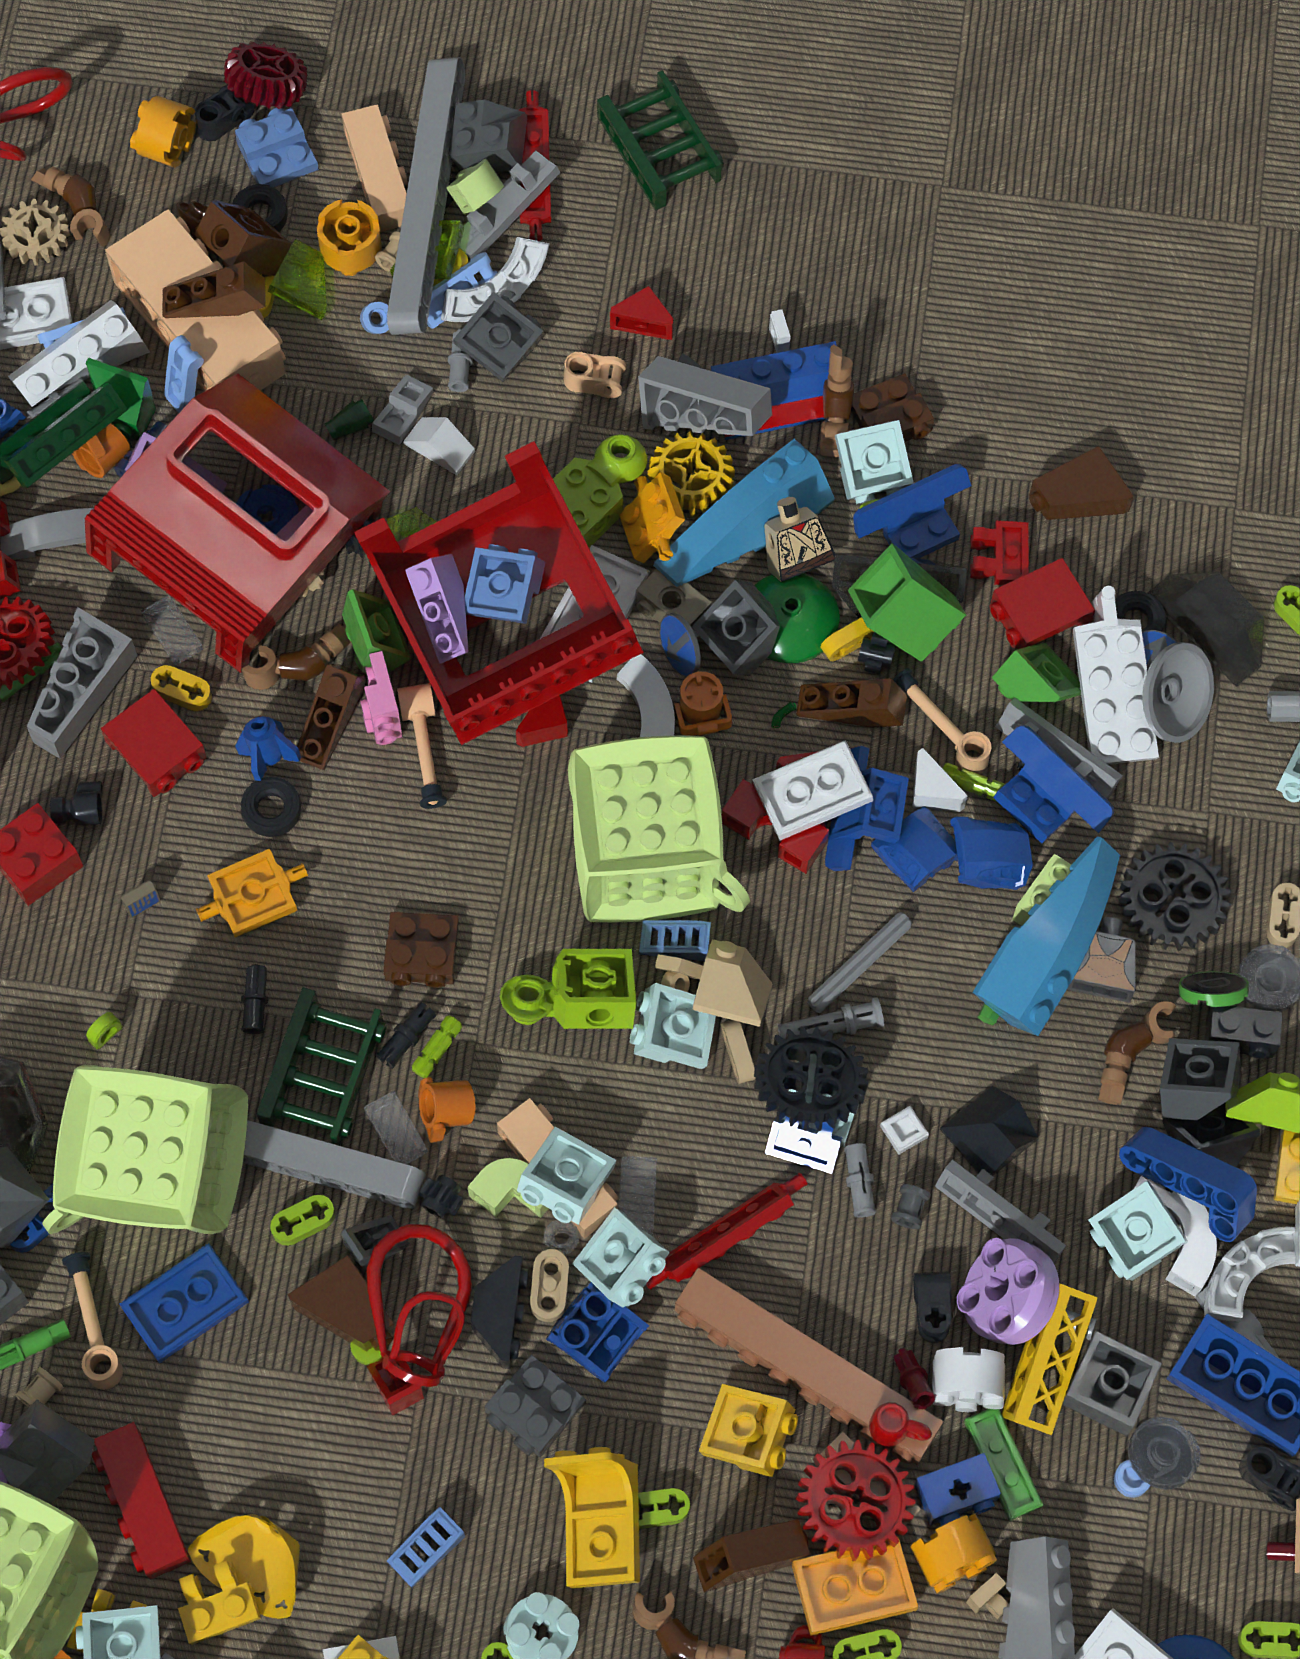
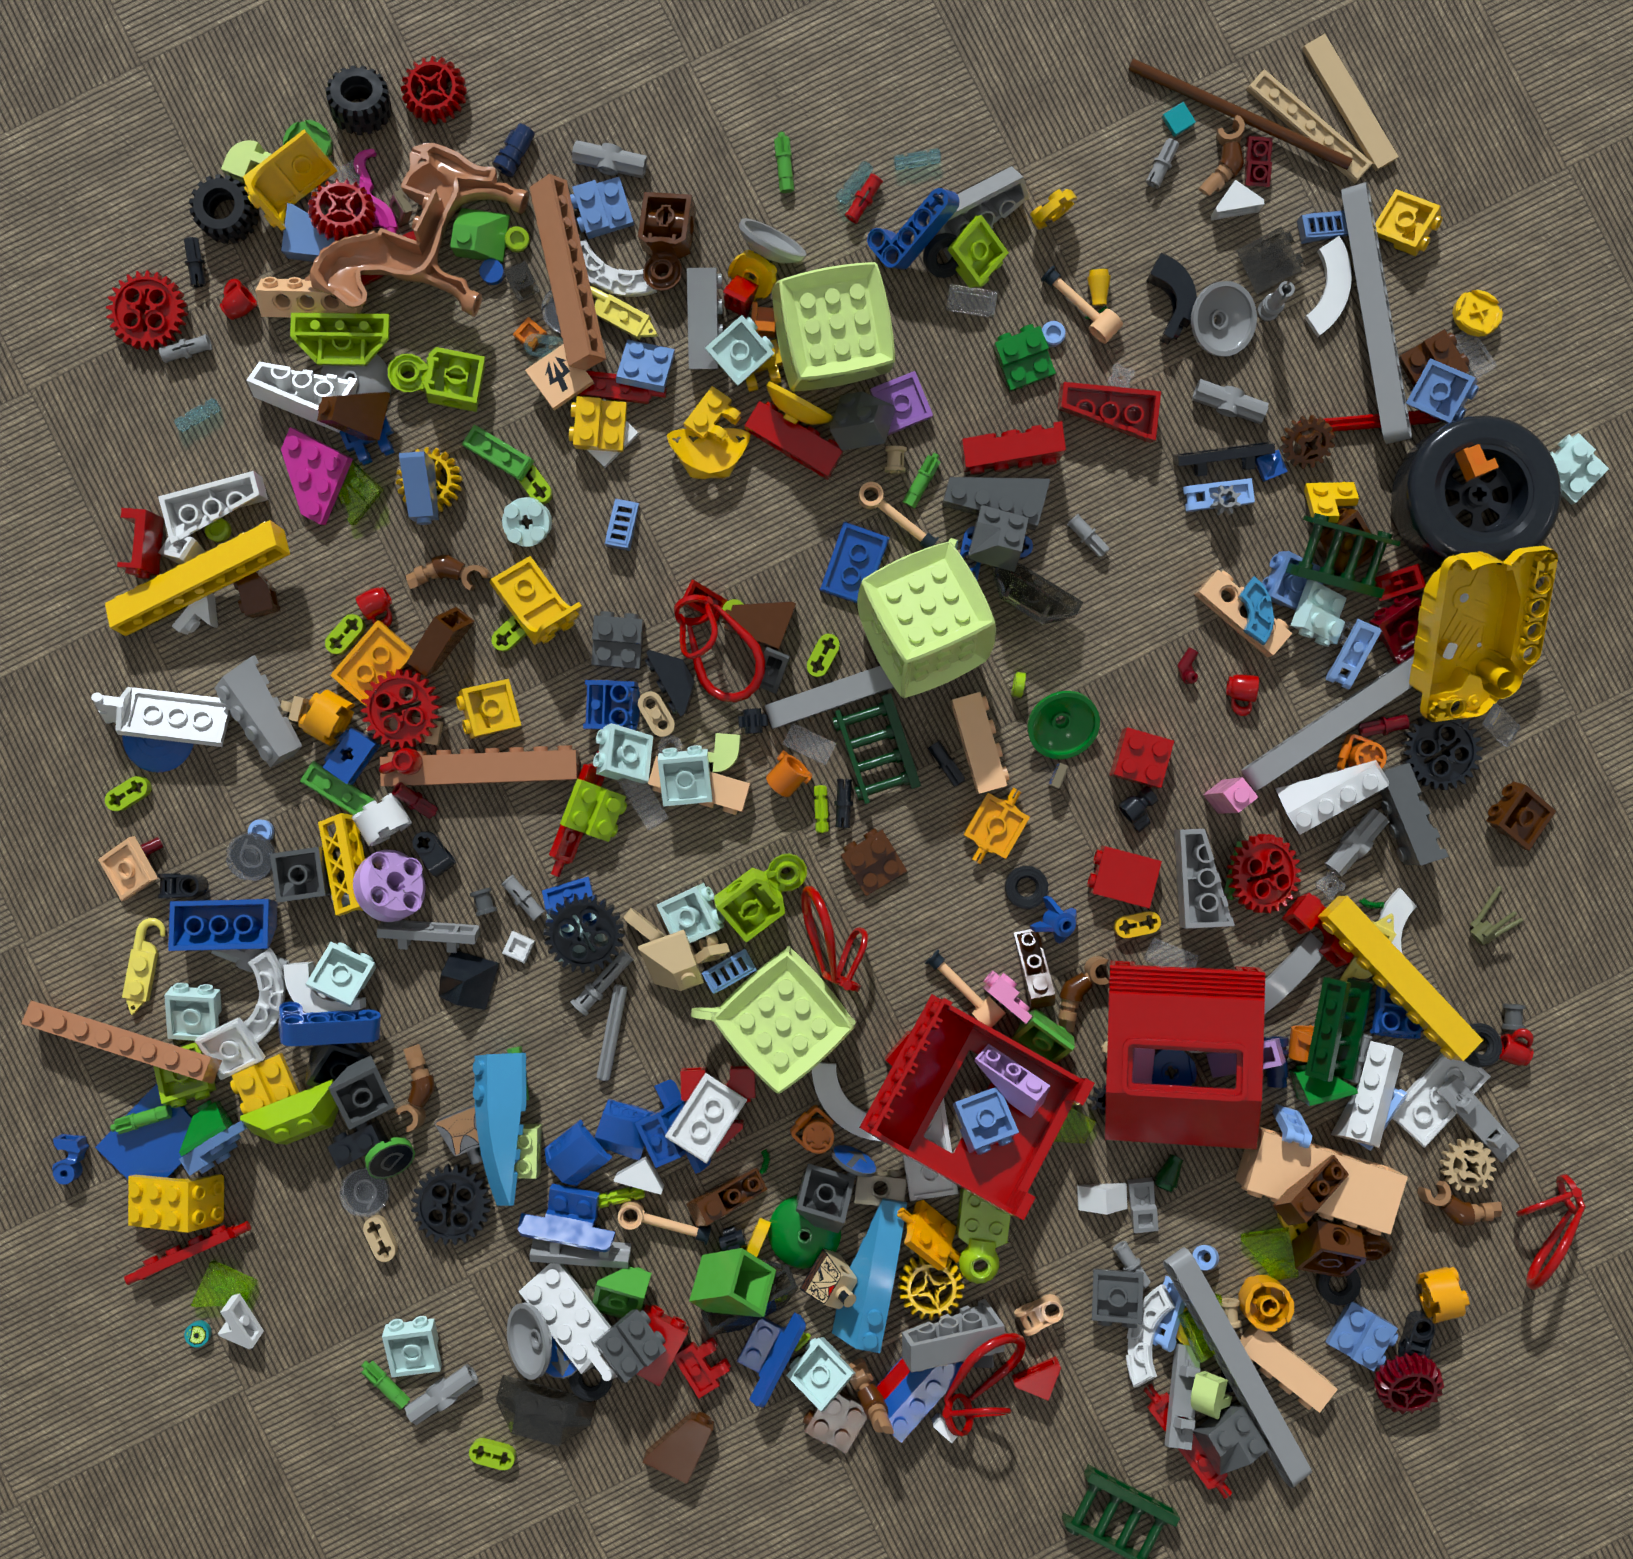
camera: 145 degrees right, 20 degrees up
(89, 945) = (1066, 736): none -> green dish
(106, 1528) = (796, 408): none -> yellow dish
(200, 995) = (978, 742): none -> light nougat brick
(523, 881) = (834, 975): none -> red animal
(644, 356) = (969, 1412): none -> red animal
(703, 1218) = (594, 810): none -> lime plate
(1062, 611) = (630, 1345): none -> dark grey plate

